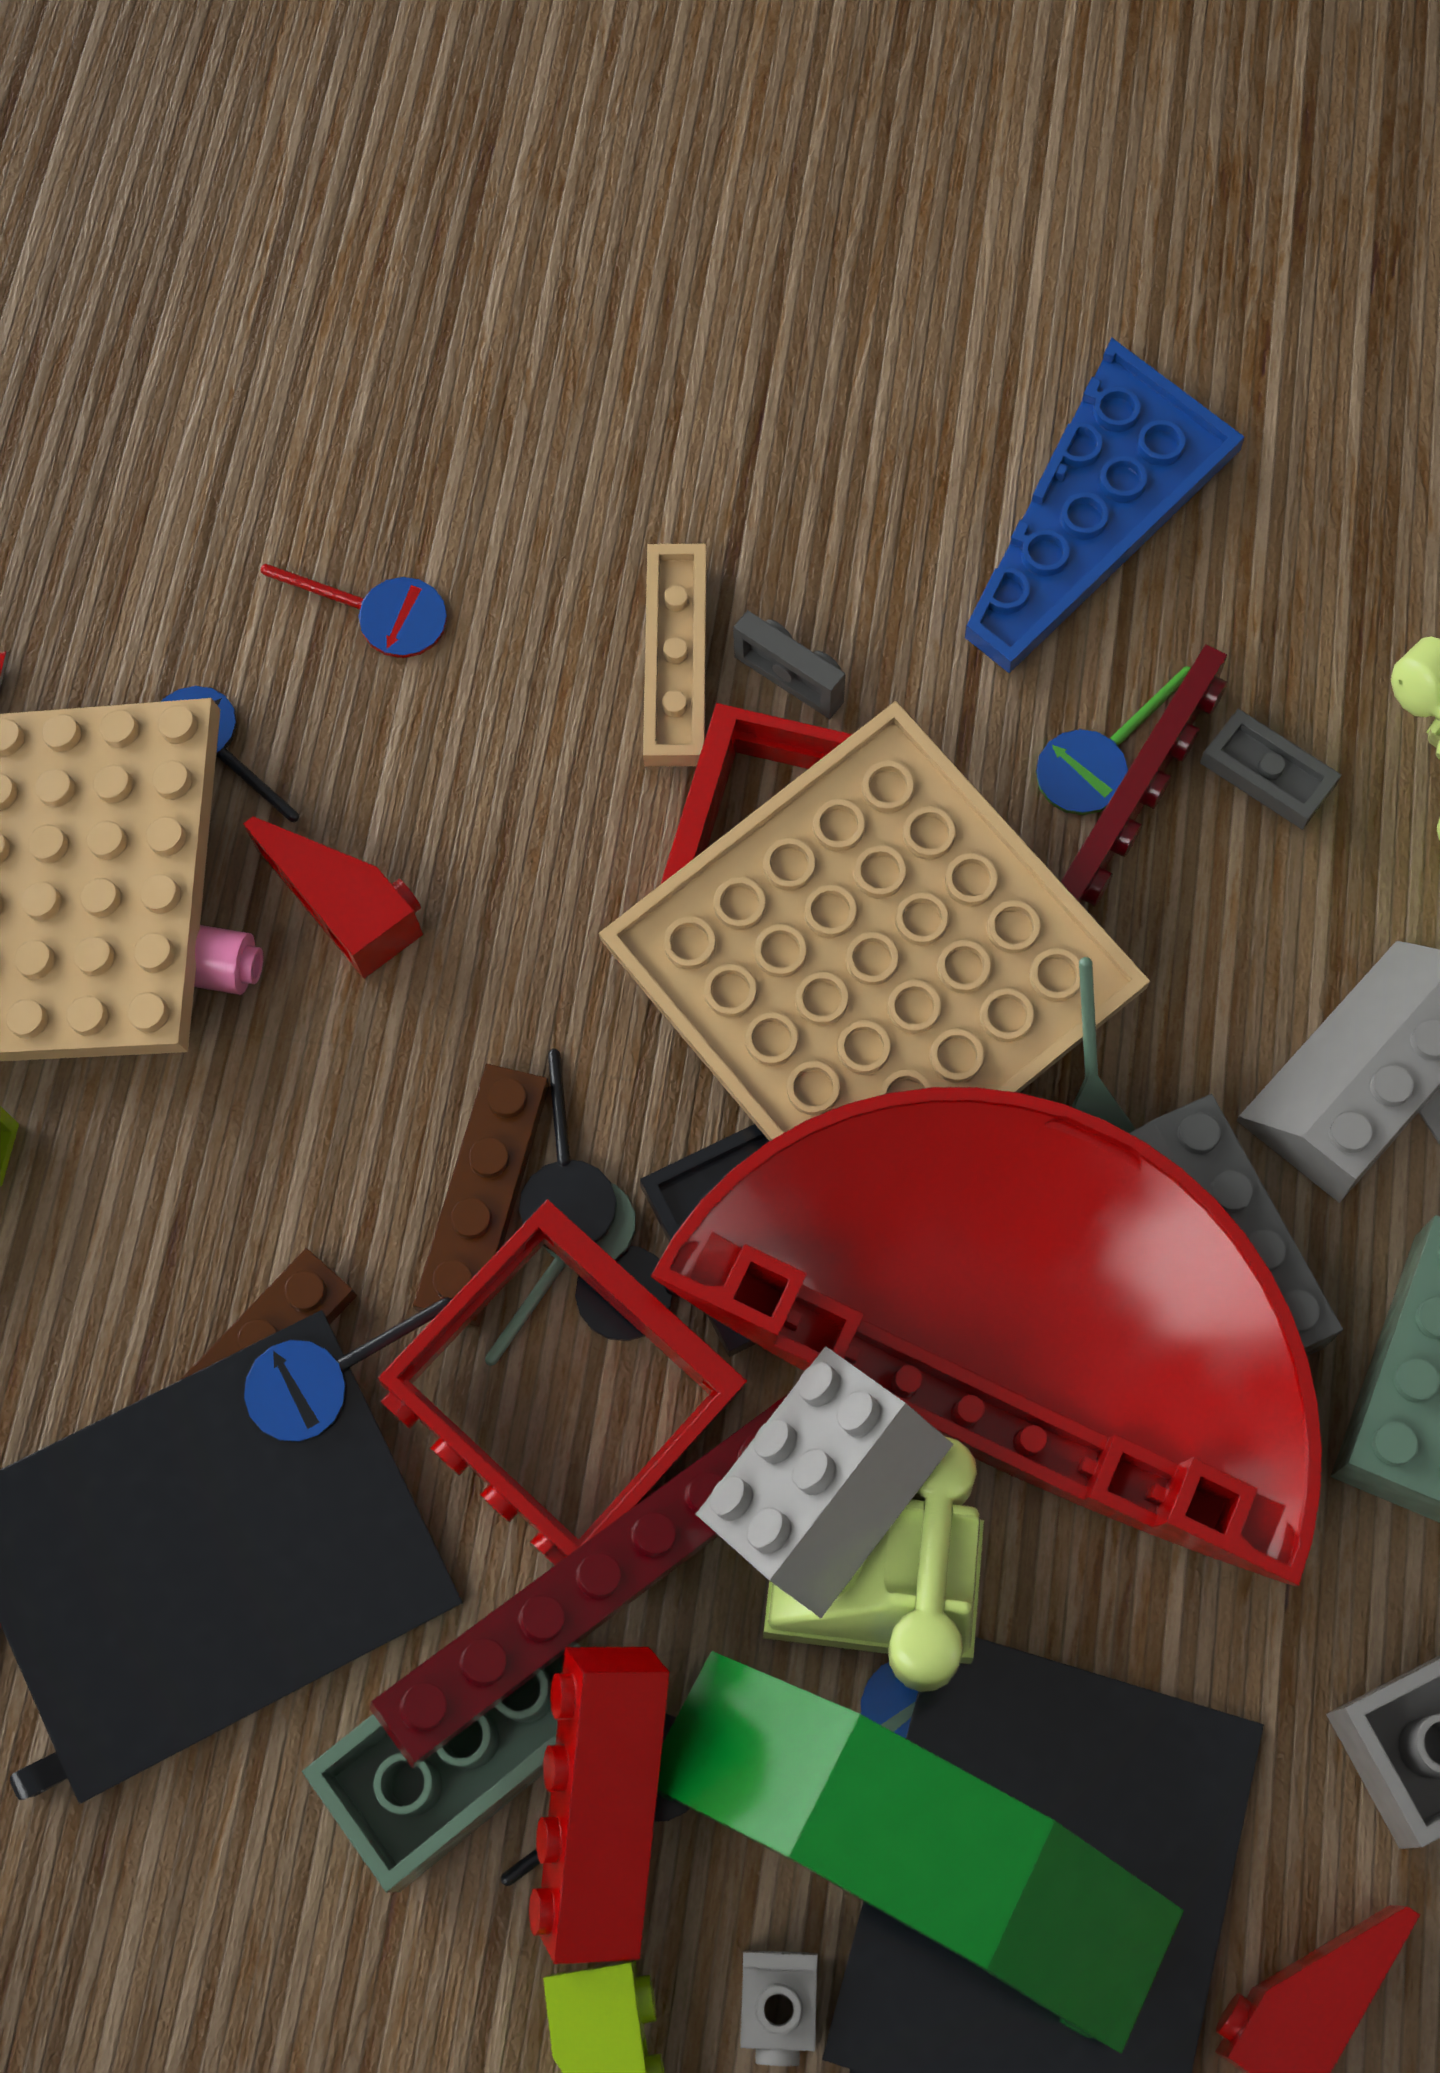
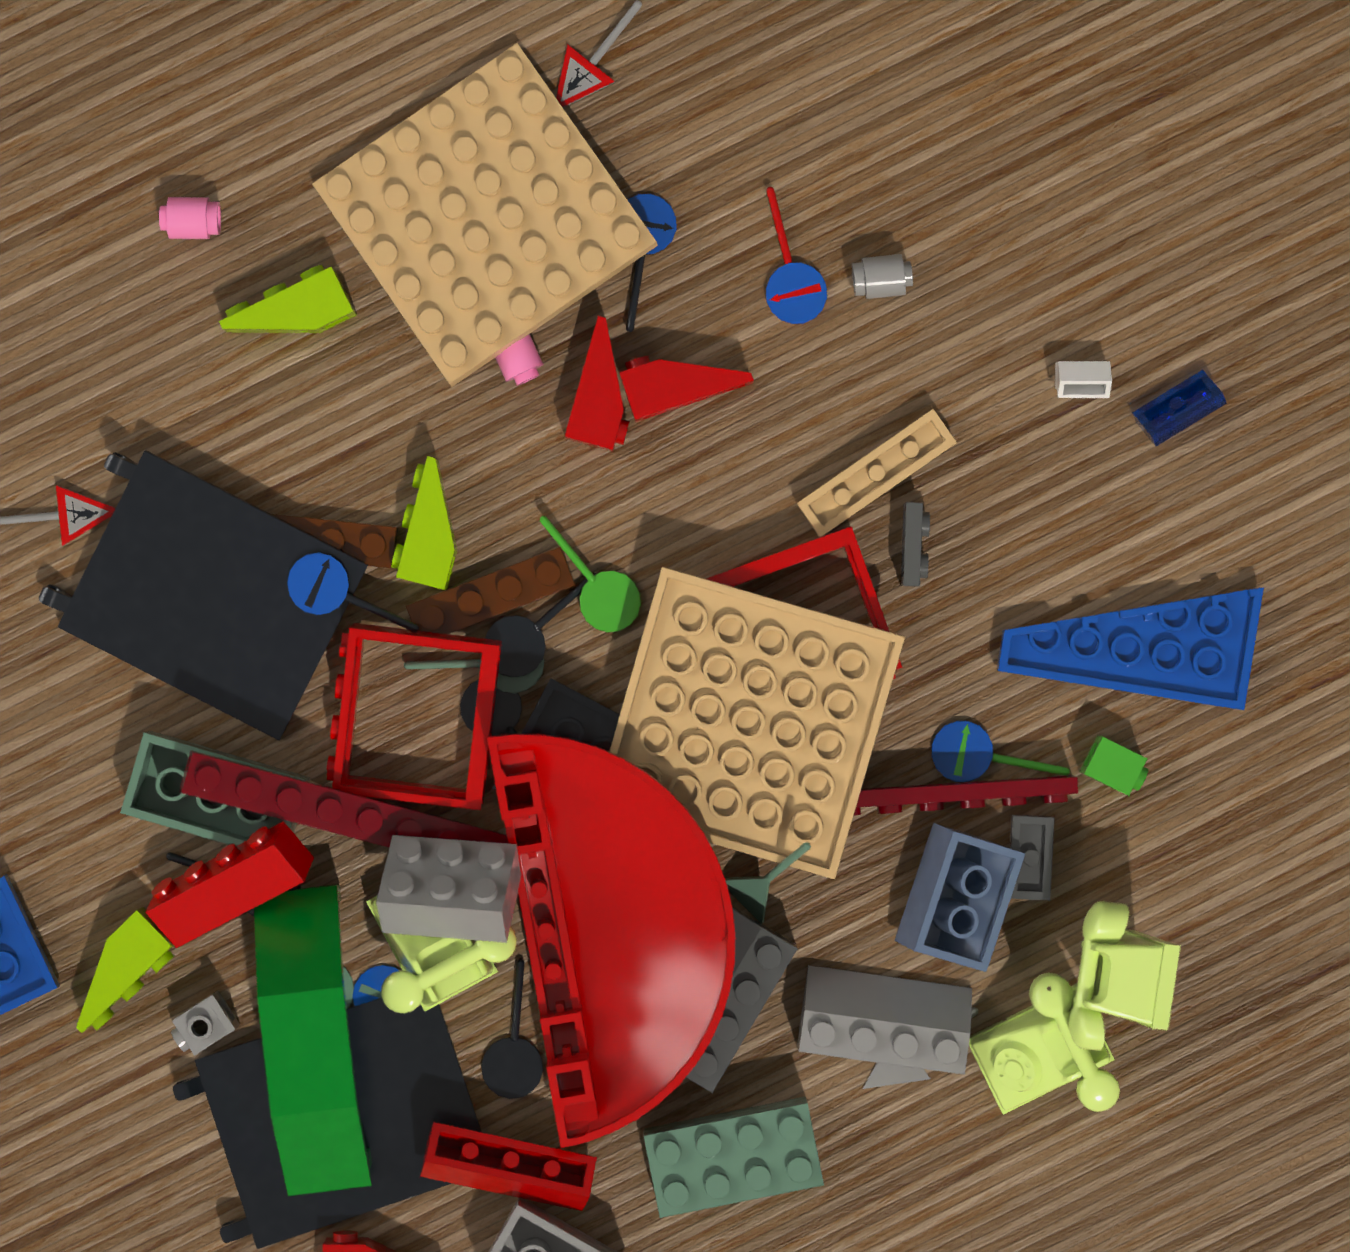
camera: 50 degrees right, 20 degrees up
(355, 1211) = (430, 538): none -> lime slope
(397, 800) = (669, 385): none -> red slope
(455, 509) = (881, 276): none -> light grey brick
(592, 1054) = (608, 598): none -> bright green piece
(742, 355) = (1083, 379): none -> white piece
(842, 306) = (1179, 408): none -> clear blue plate
(1126, 1593) = (513, 1064): none -> black piece
(1217, 608) = (1115, 766): none -> bright green brick
(1268, 871) = (959, 897): none -> sand blue slope
(1275, 1690) = (508, 1166): none -> red brick

